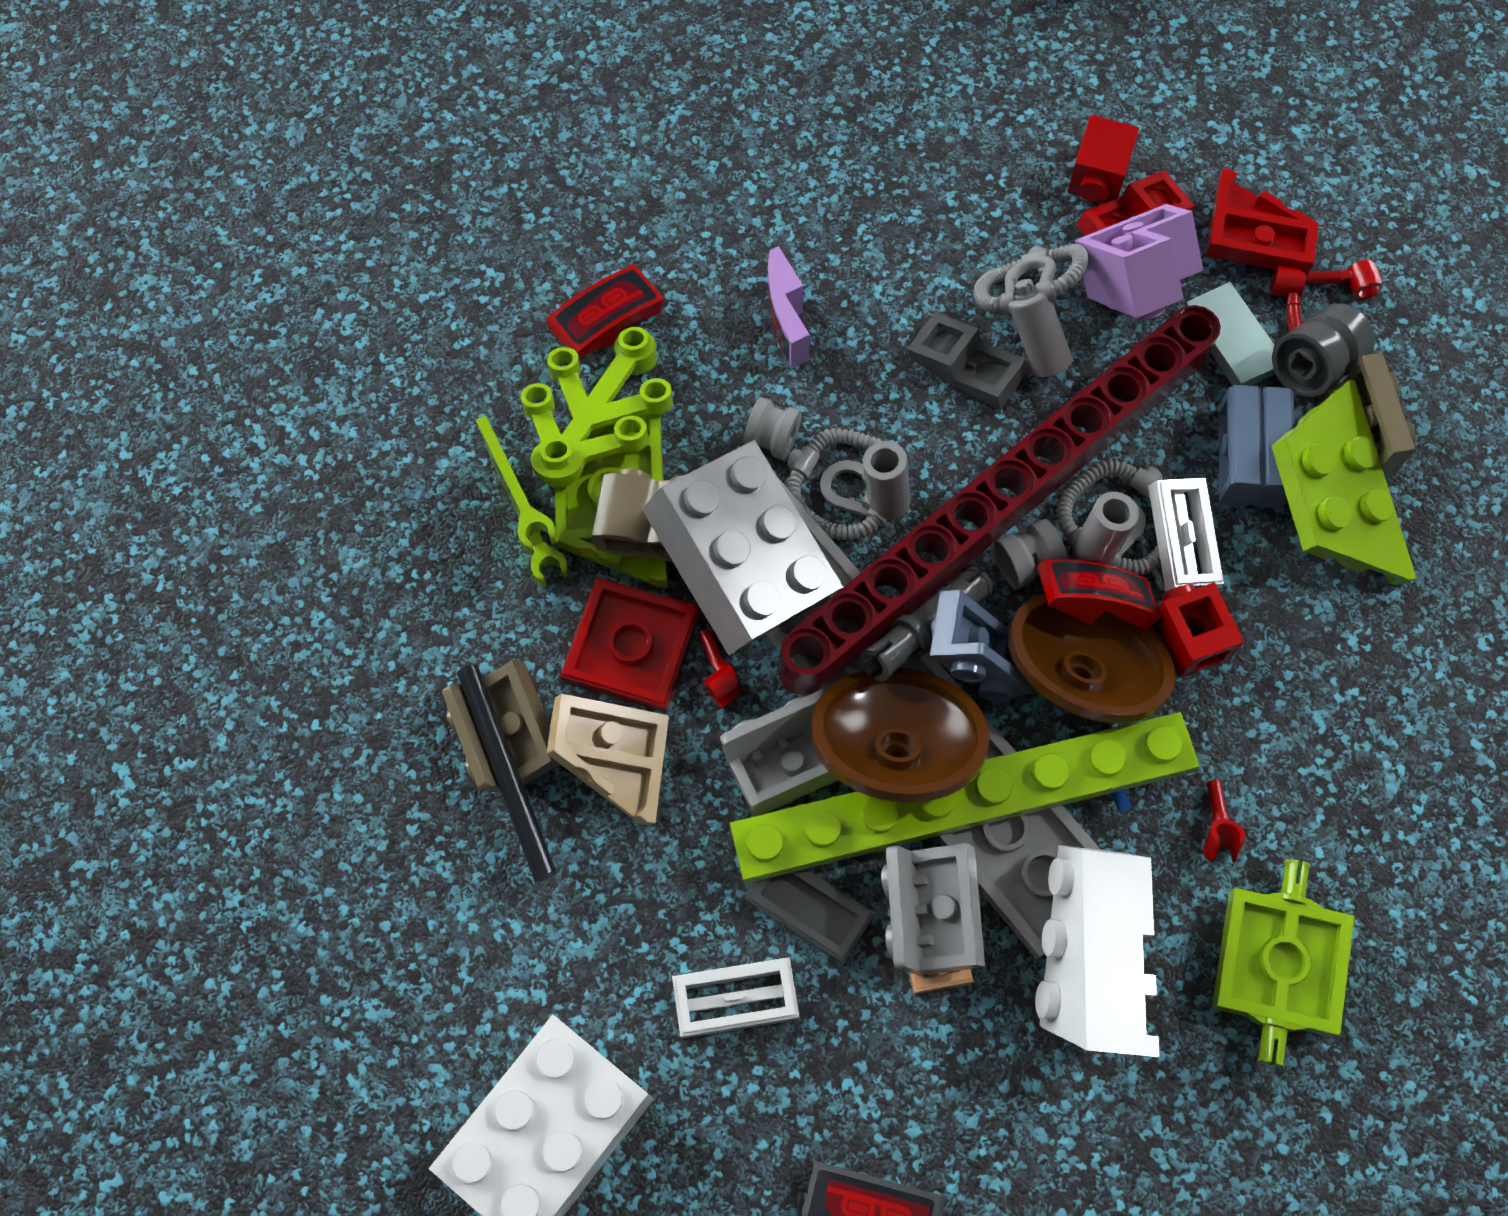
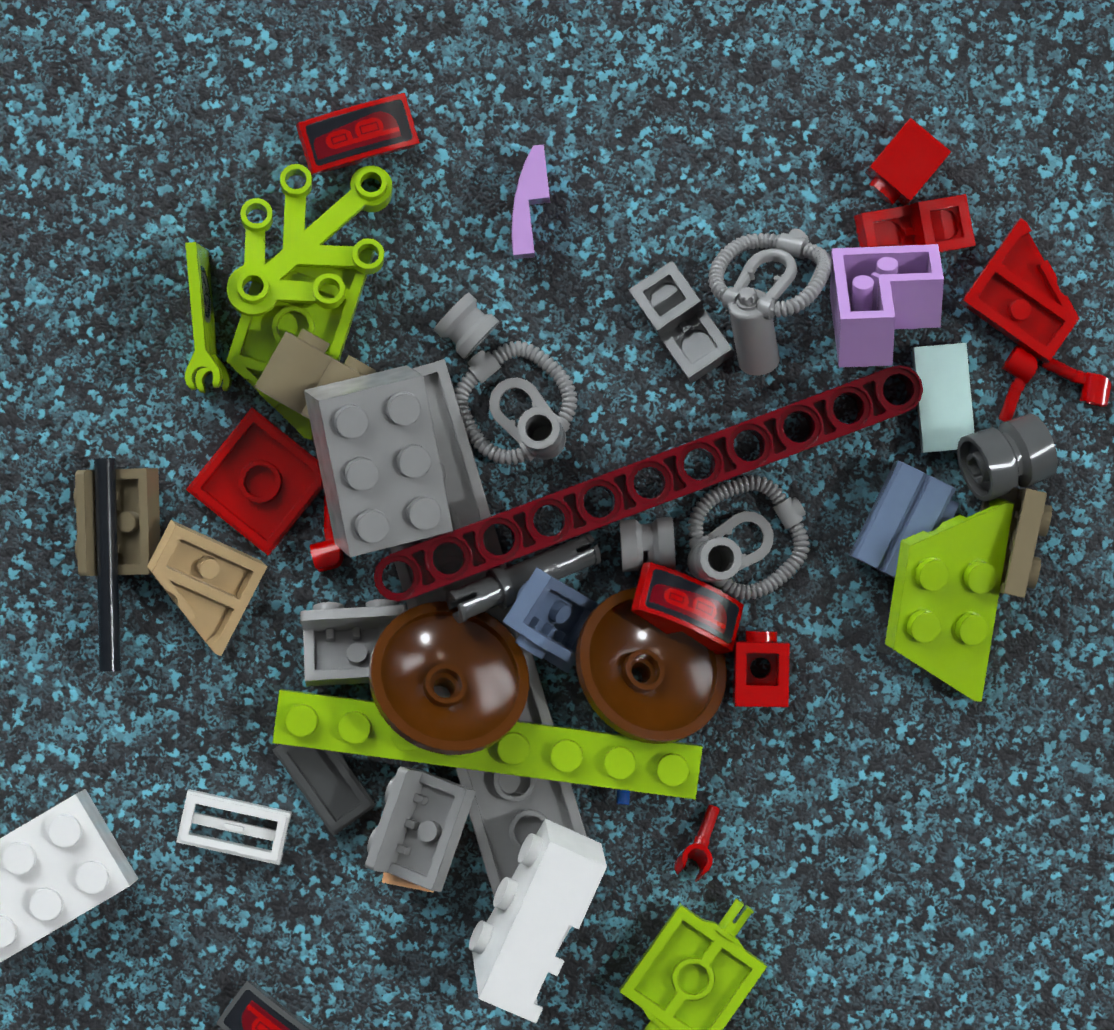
camera: 20 degrees right, 20 degrees up
(1176, 533) = (777, 574): white tile -> none

